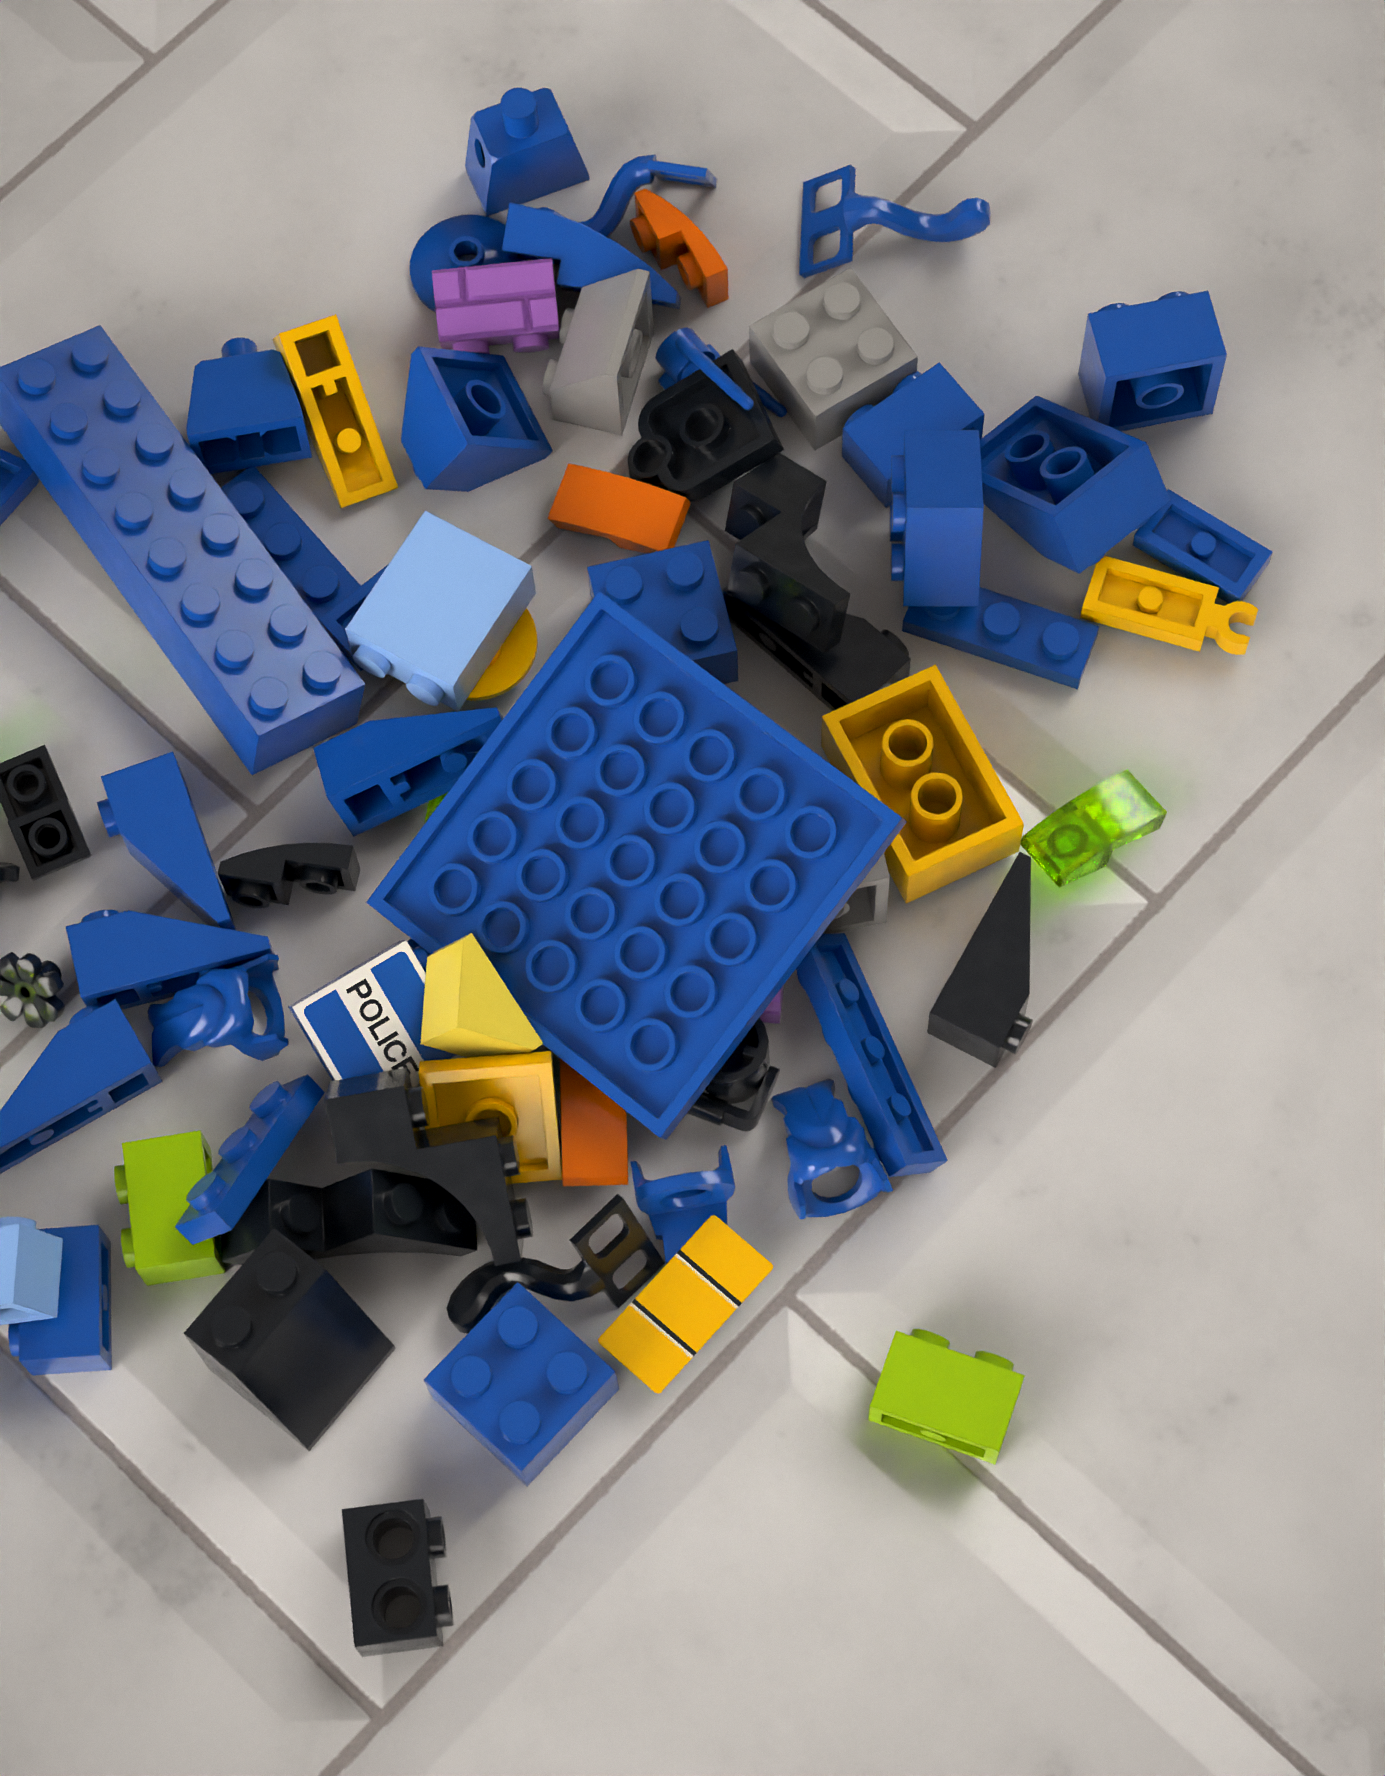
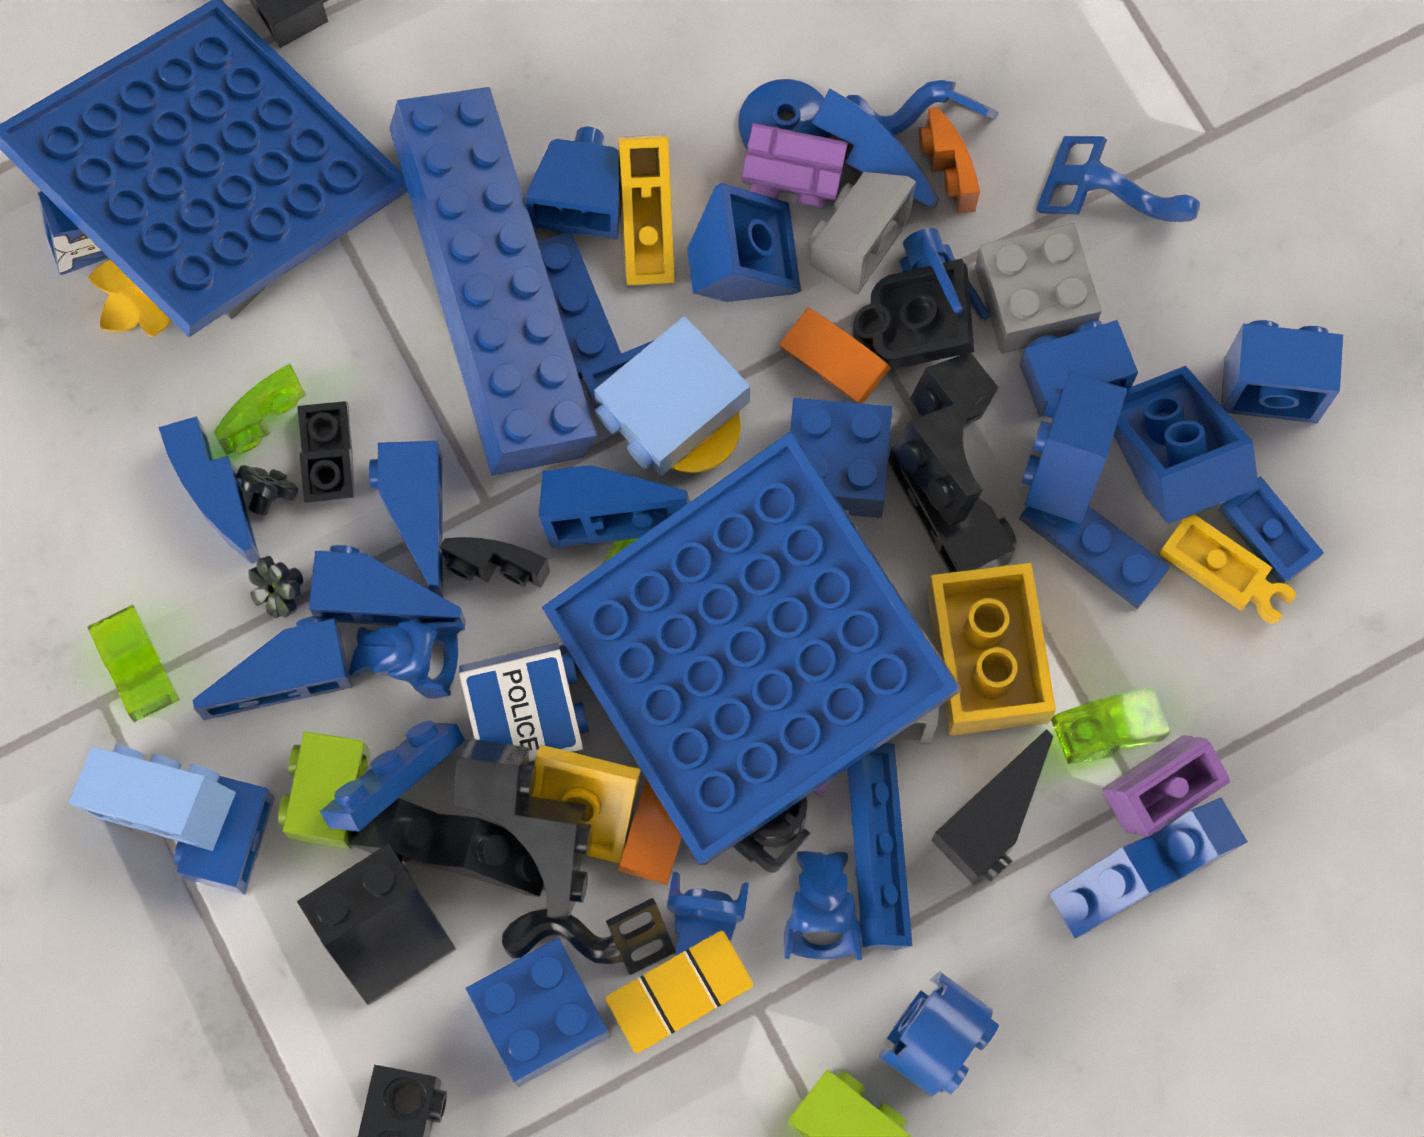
camera: 15 degrees right, 5 degrees up
(470, 1006) = (591, 715): light yellow slope -> none
(521, 150) = (855, 46): blue torso -> none
(1015, 1248) = (939, 1035): none -> blue brick
(1183, 872) = (1166, 785): none -> medium lavender brick
(1193, 973) = (1148, 866): none -> blue arch

